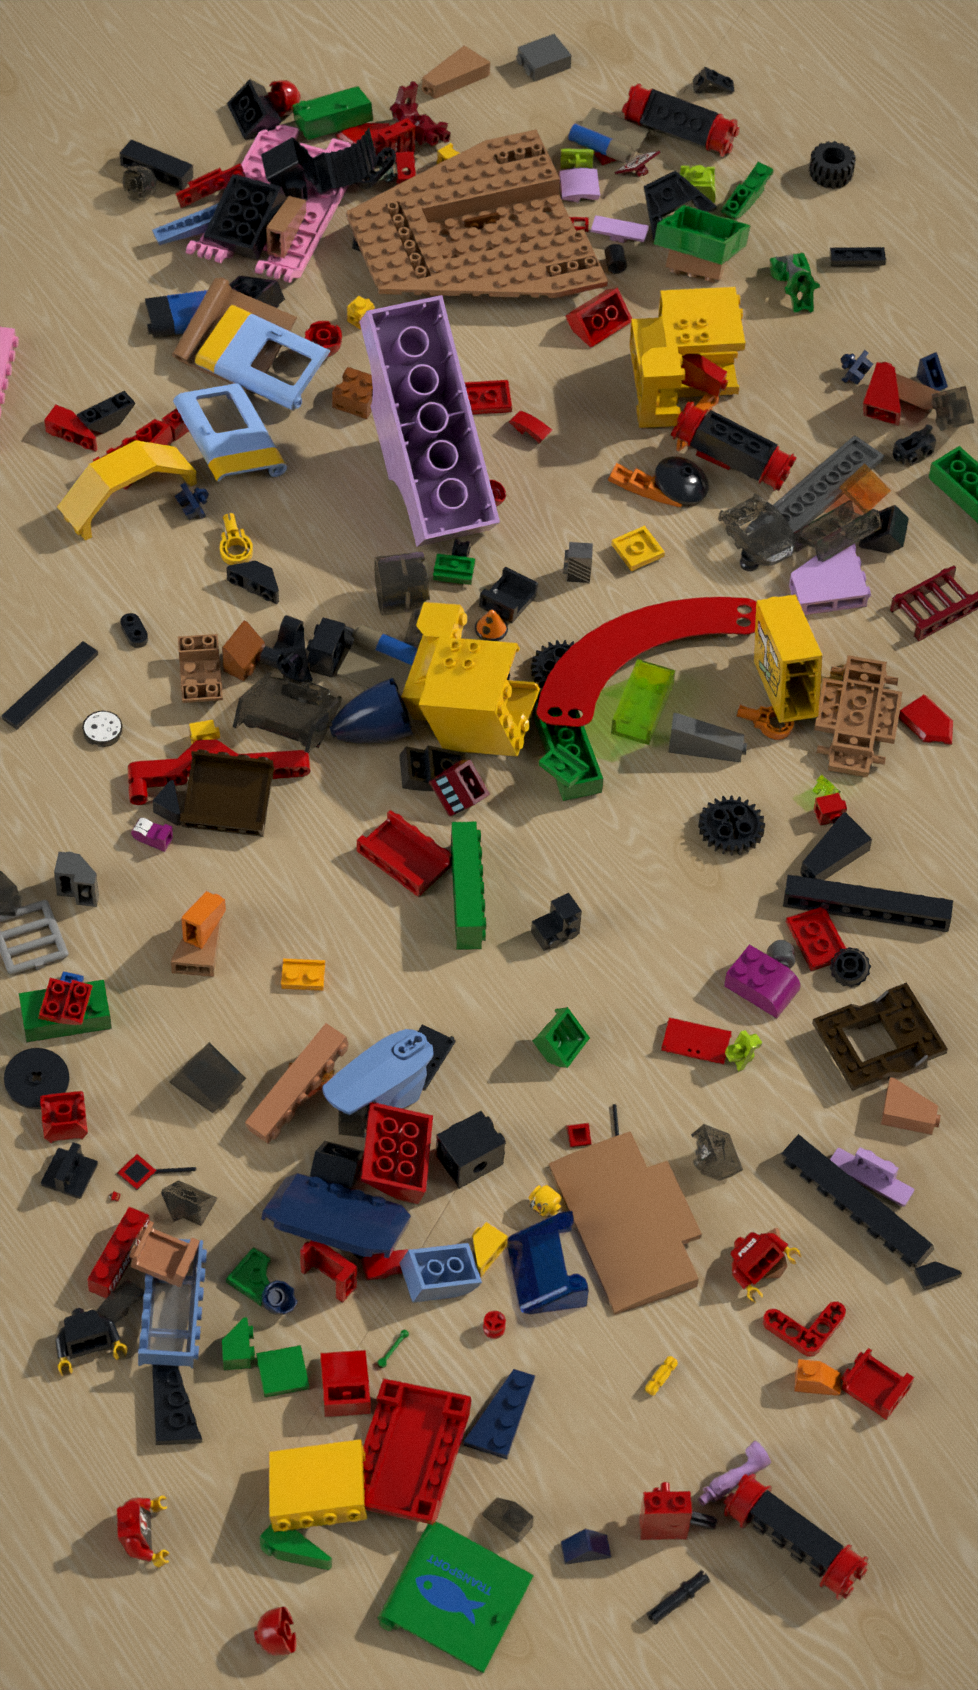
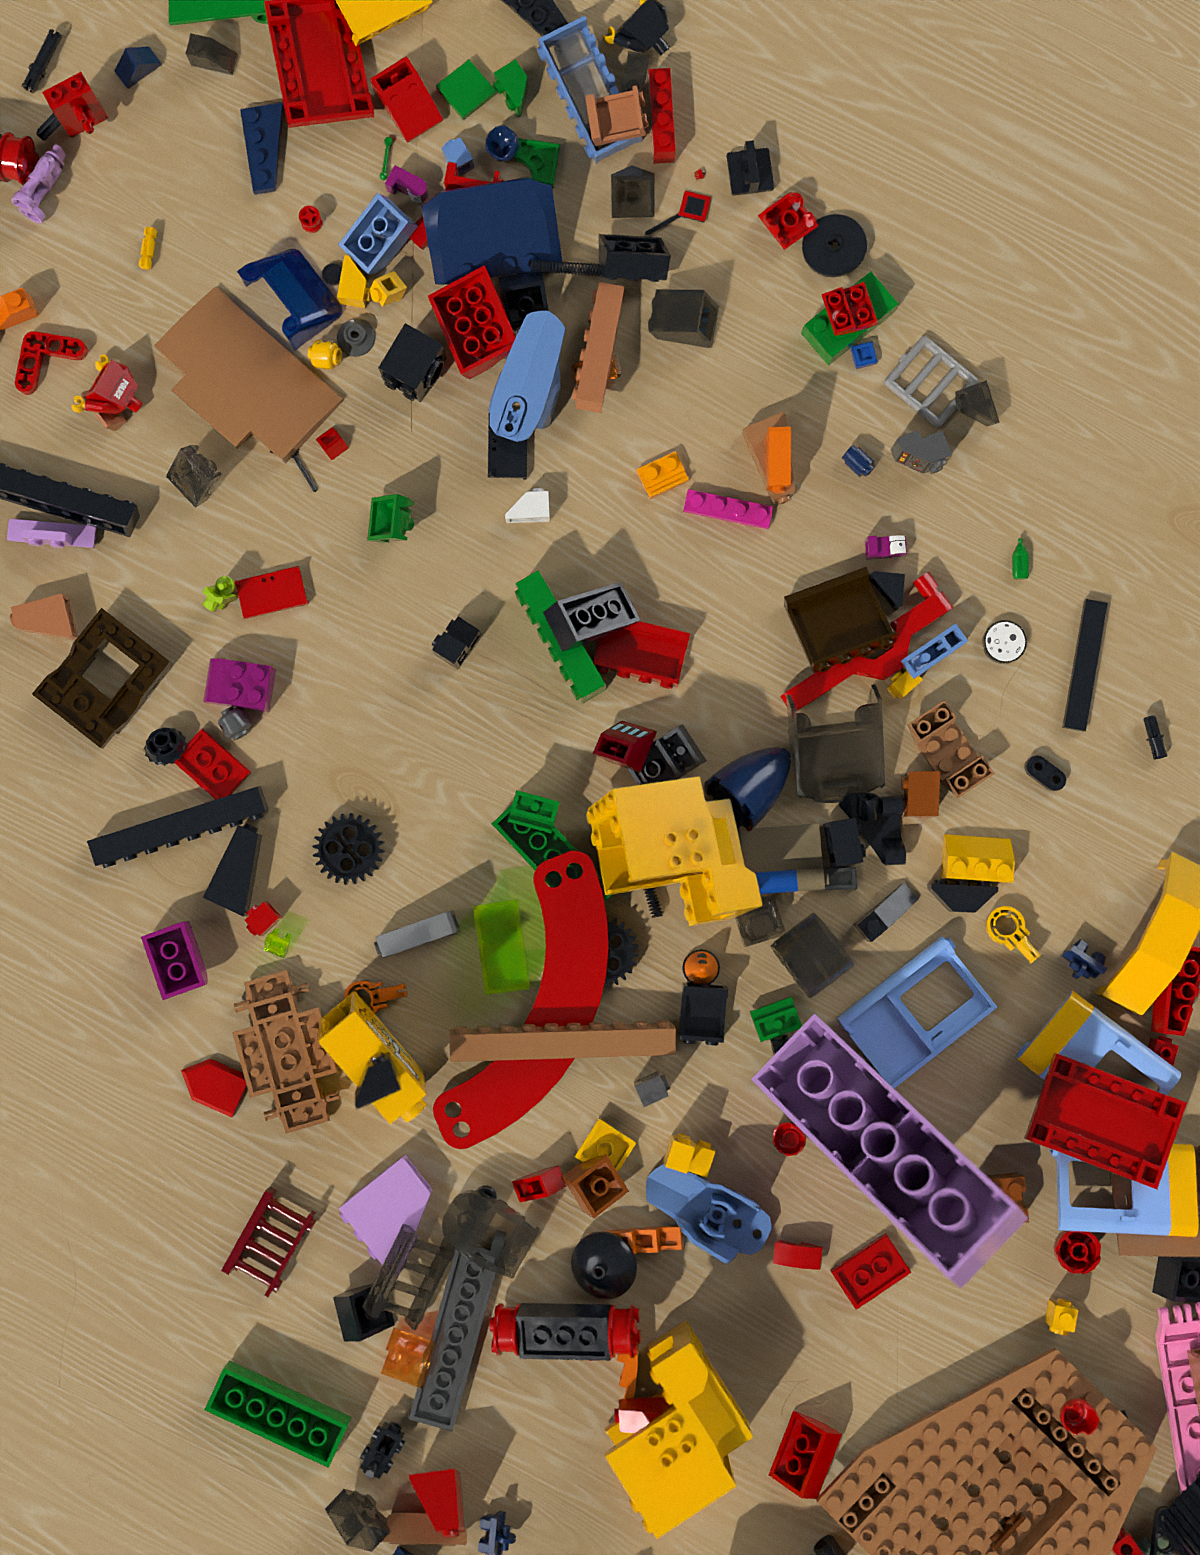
camera: 155 degrees right, 30 degrees up
(32, 612) = (1154, 737): none -> black axle
(49, 776) = (1020, 561): none -> green piece
(131, 904) = (858, 461): none -> dark blue brick
(163, 739) = (934, 651): none -> medium blue slope
(220, 1145) = (633, 257): none -> black slope
(228, 596) = (978, 859): none -> yellow slope
(250, 391) = (1105, 1120): none -> red slope
(264, 924) = (728, 509): none -> dark pink plate
(311, 1174) = (581, 269): none -> black piece
(324, 595) = (885, 913): none -> slope
(326, 1310) = (456, 152): none -> medium blue brick
(369, 519) = (889, 1031): none -> light blue piece
(387, 1311) = (406, 183): none -> magenta leg
(390, 243) = (1079, 1416): none -> red hair
(433, 997) = (530, 508): none -> white slope
(434, 872) = (590, 616): none -> black slope
(457, 1223) = (384, 292): none -> yellow brick
(499, 1273) = (331, 274): none -> black piece
(508, 1219) = (356, 346): none -> dark grey piece
(577, 514) = (688, 1155): none -> yellow brick
(583, 474) = (707, 1213): none -> medium blue piece
(632, 619) = (562, 1041): none -> medium nougat brick
(659, 525) = (595, 1185): none -> dark orange slope
(702, 547) = (539, 1184): none -> red slope
(790, 607) = (377, 1080): none -> black slope
(917, 809) = (175, 959): none -> magenta brick

